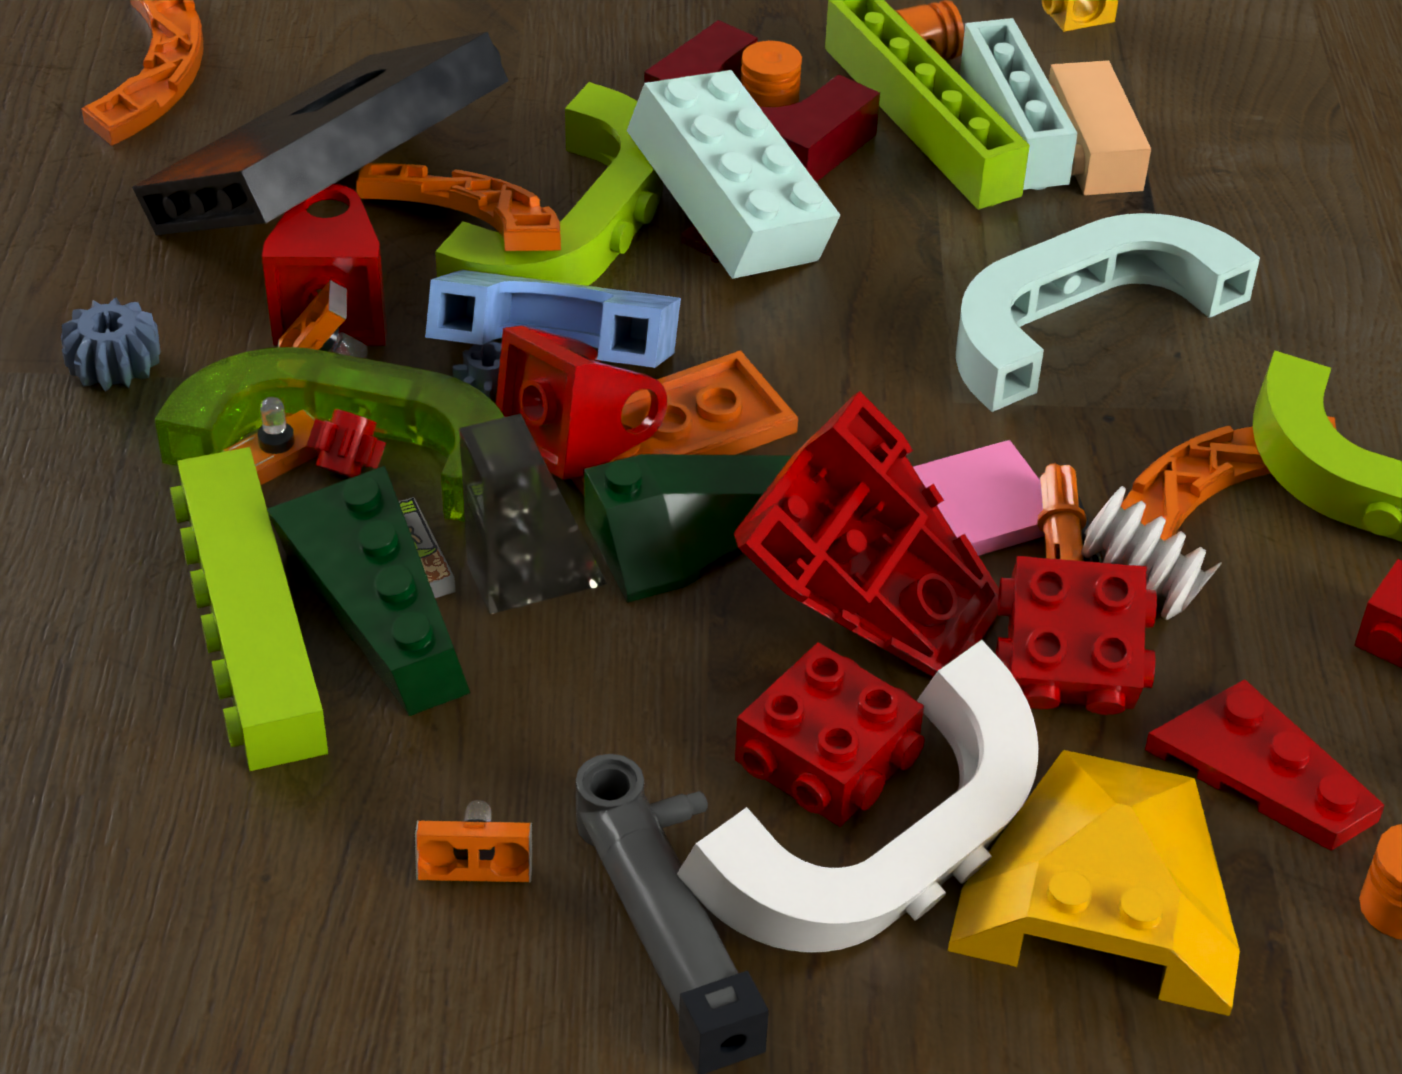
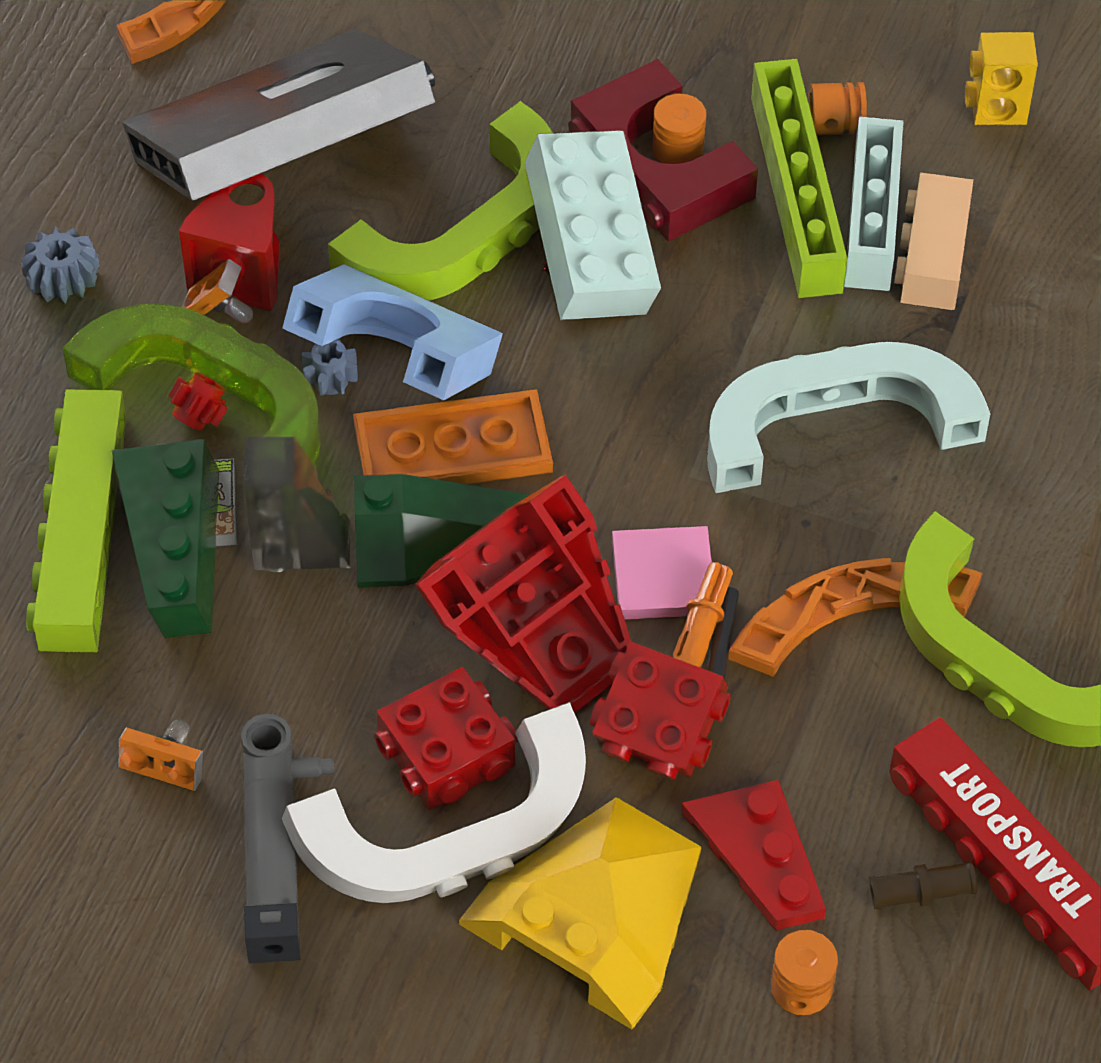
camera: 20 degrees right, 10 degrees up
(279, 441) = (151, 385): piece -> none
(503, 205) = (390, 195): orange tile -> none
(571, 399) = (368, 424): red hose -> none
(1137, 544) = (748, 660): white piece -> none

